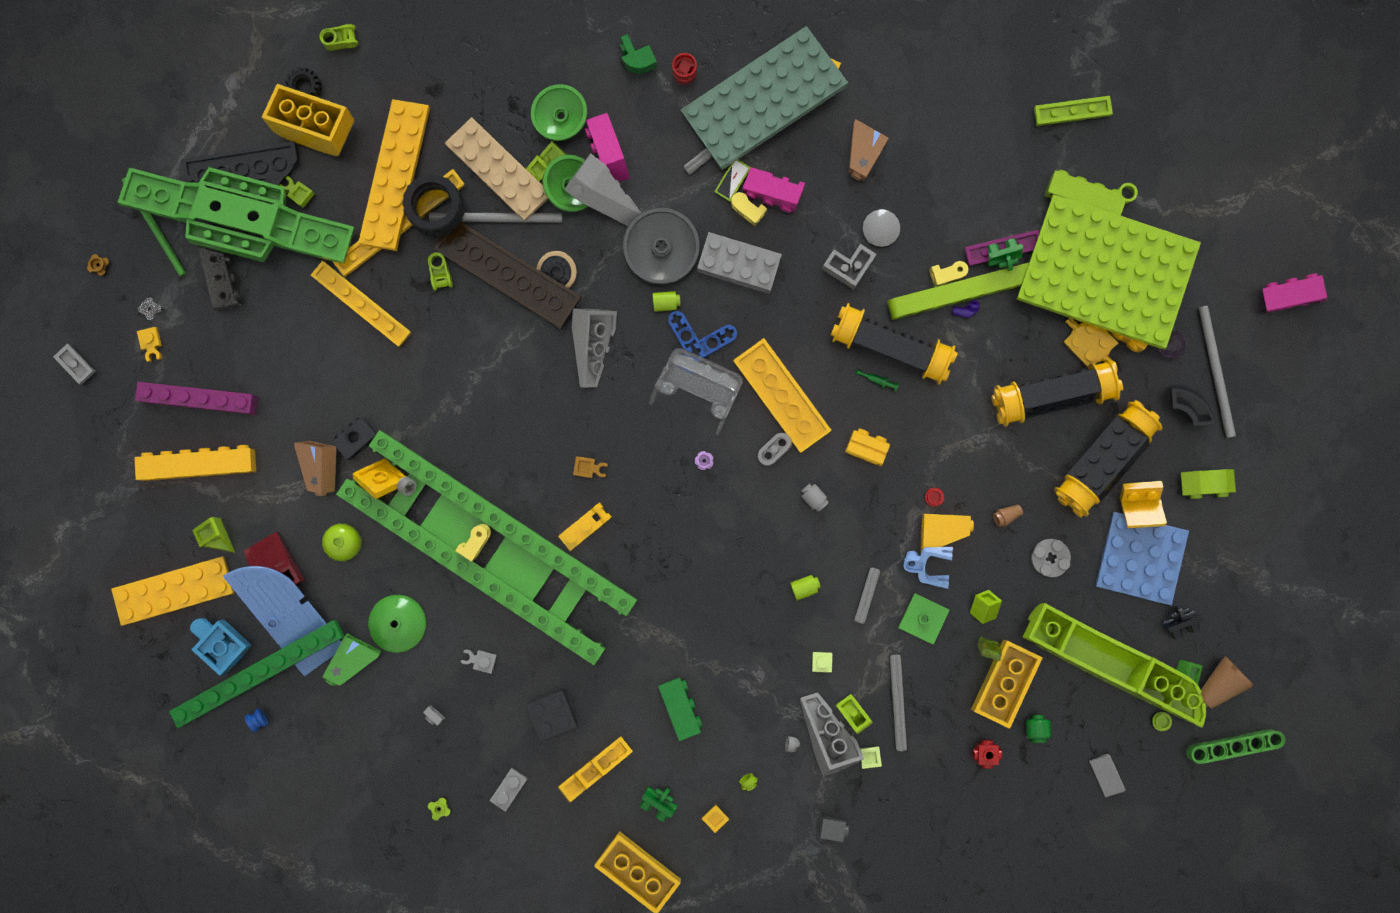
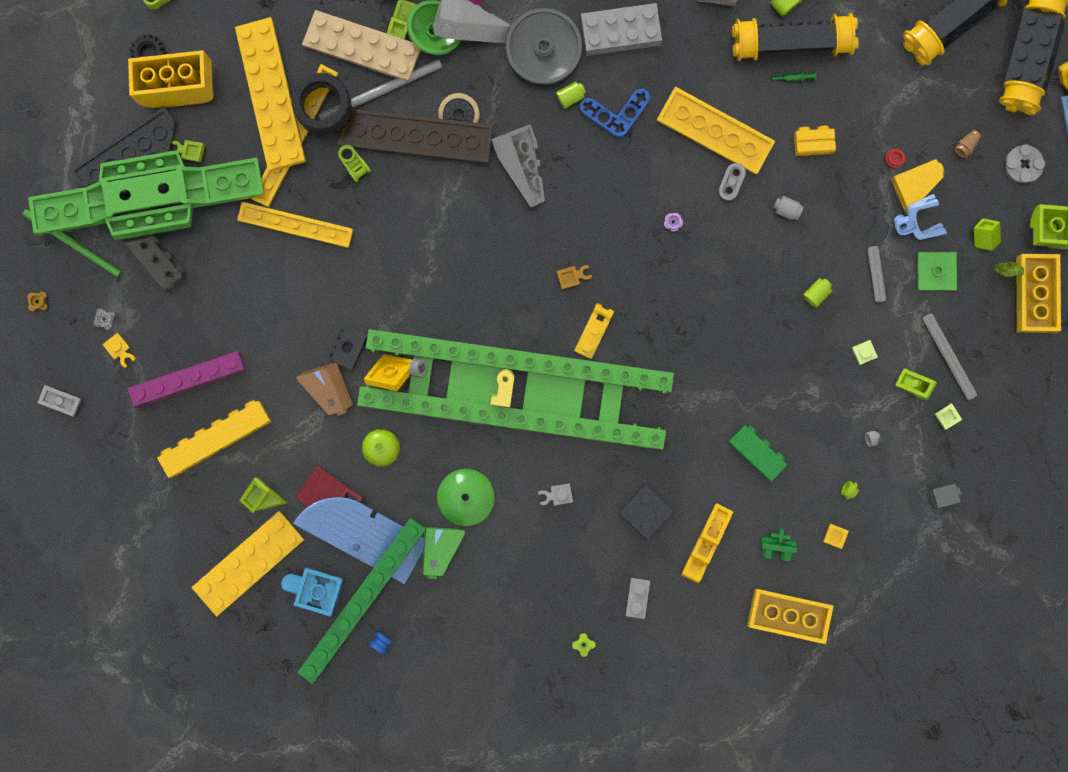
camera: 25 degrees left, 0 degrees up
(433, 716) = (539, 564): light grey plate -> none
(701, 379) = (638, 149): clear windscreen -> none
(830, 740) = (905, 418): light grey wedge -> none
(980, 751) = (1044, 364): red brick -> none

